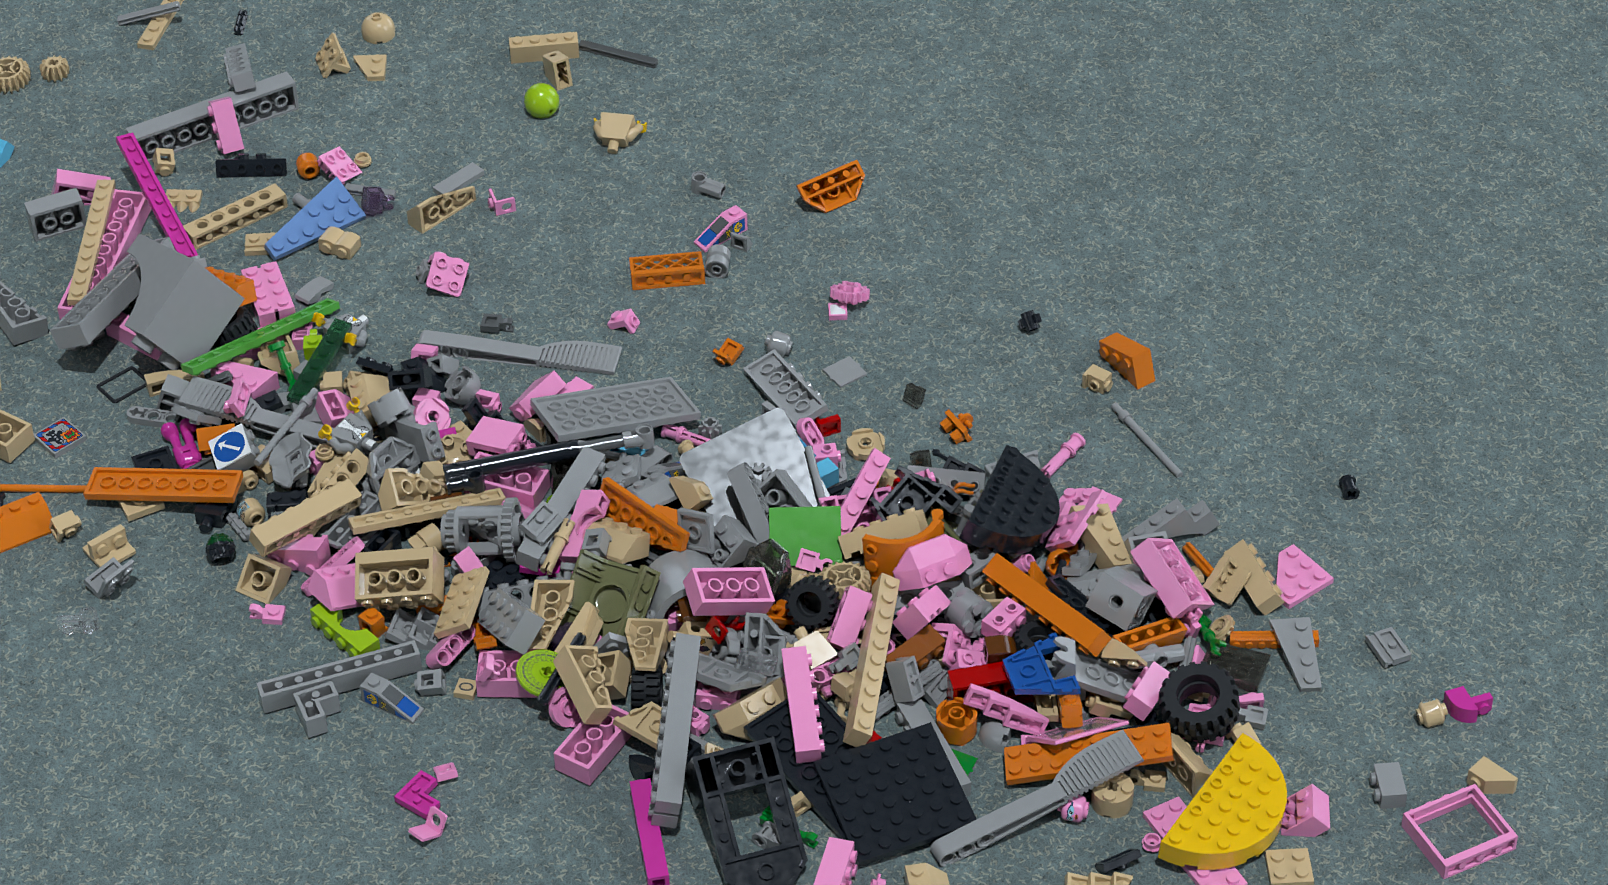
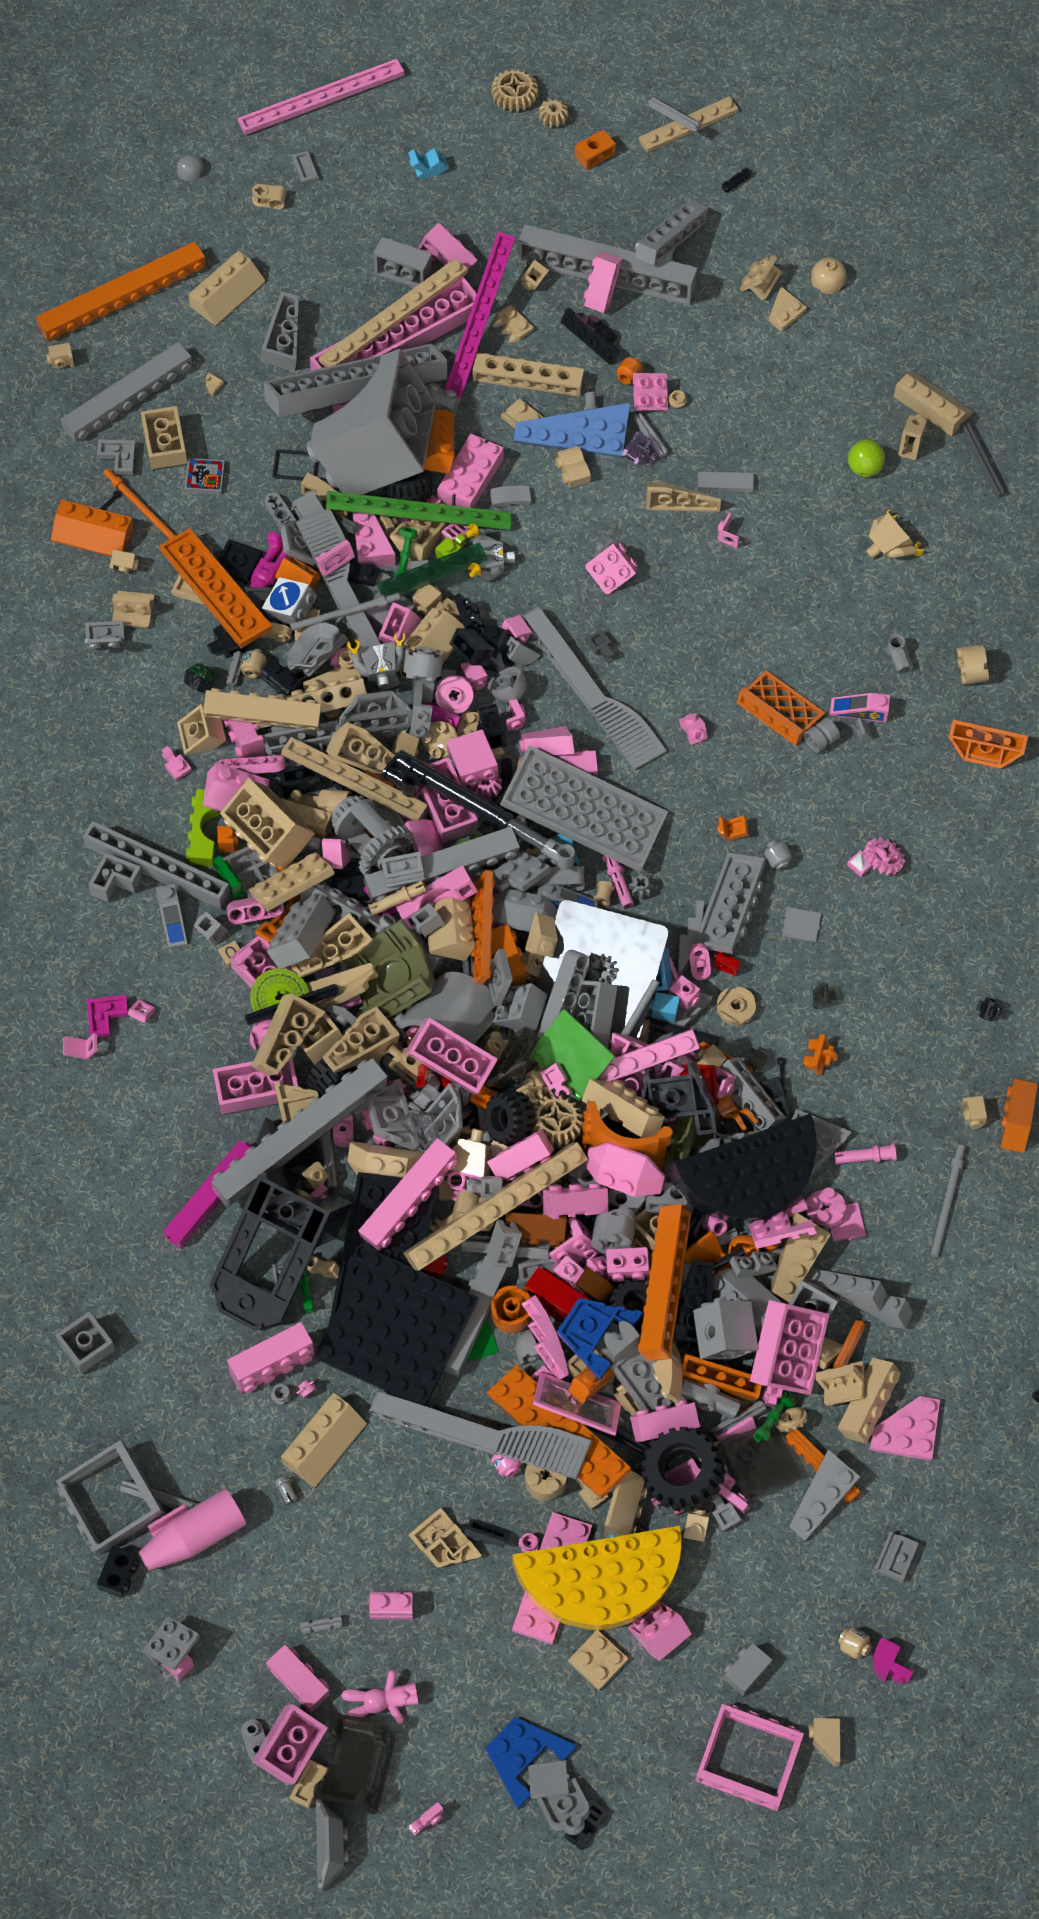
camera: 45 degrees right, 20 degrees up
(113, 68) = (595, 149): none -> orange brick
(397, 635) = (223, 870): none -> green plate
(765, 153) = (972, 664): none -> tan brick

